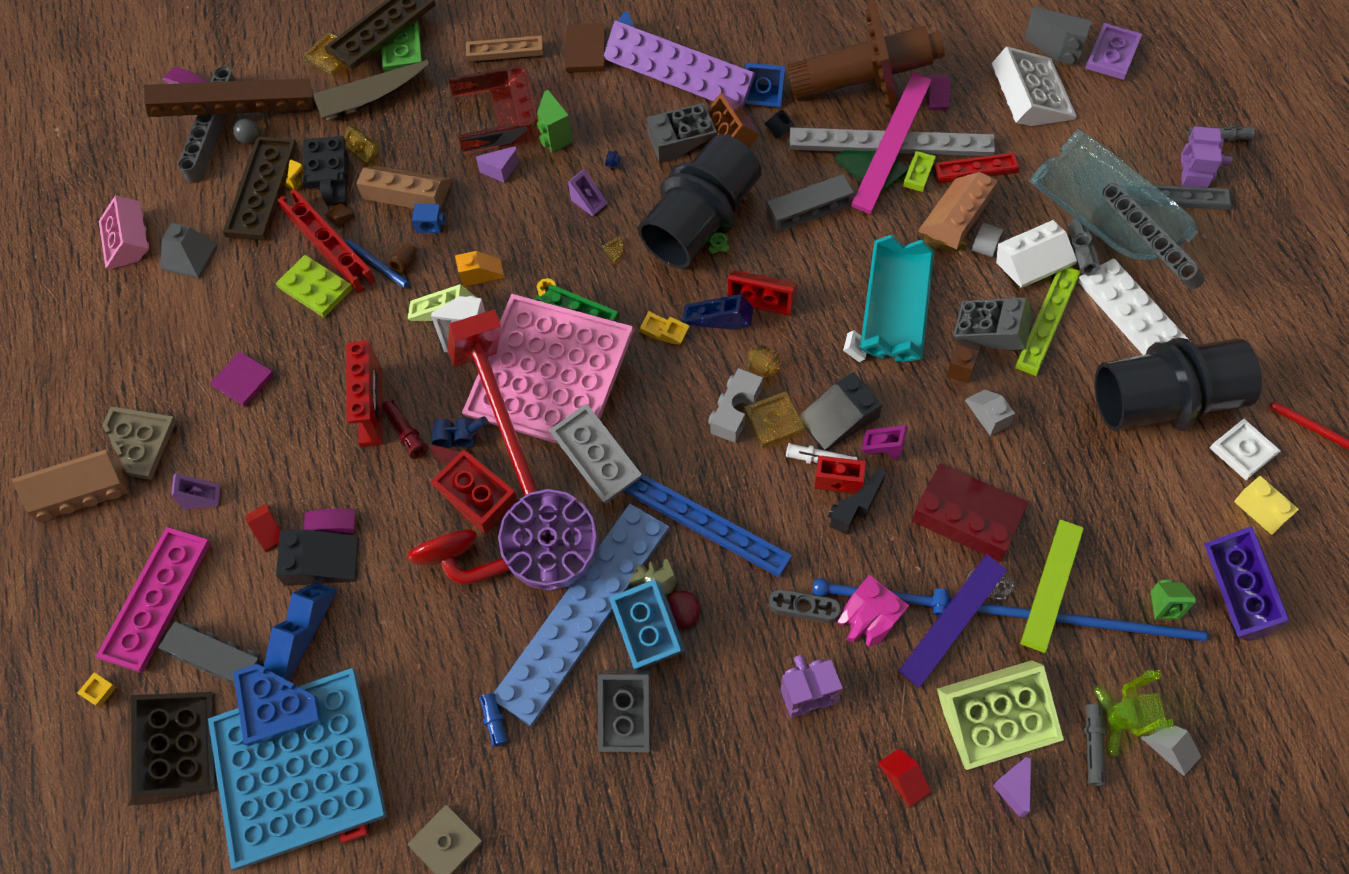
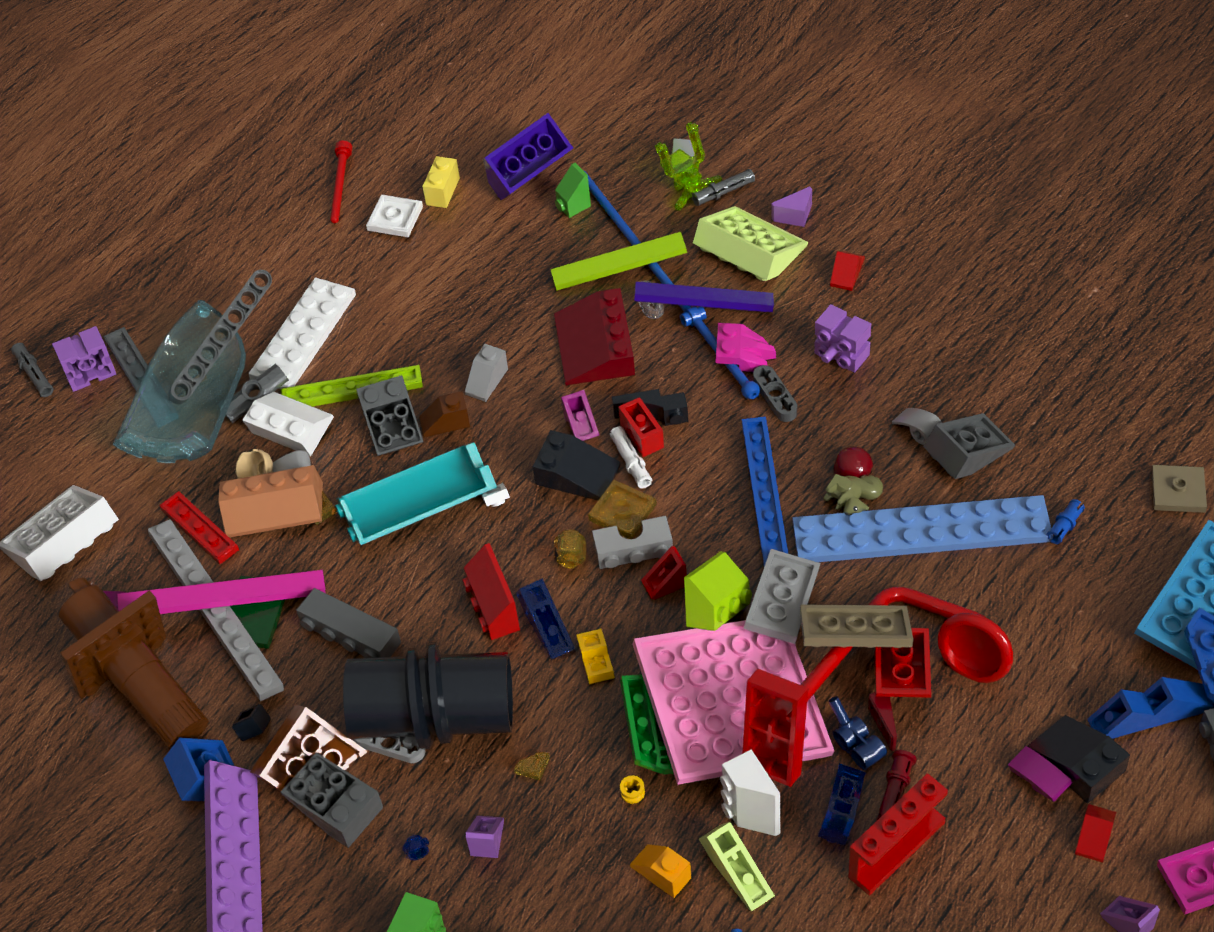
camera: 125 degrees left, 10 degrees down
(423, 390) = (842, 805): none -> clear blue slope
(517, 465) = (856, 626): none -> dark tan plate
(527, 529) = (895, 565): medium lavender brick -> none
(630, 407) = (715, 593): none -> lime slope
(647, 624) = (894, 460): dark azure brick -> none
(676, 687) = (919, 421): none -> light grey panel
(688, 409) = (665, 575): none -> red slope
(919, 171) = (238, 564): lime plate -> none
(1002, 215) = (253, 463): none -> tan hair
(1177, 383) = (375, 260): black piece -> none

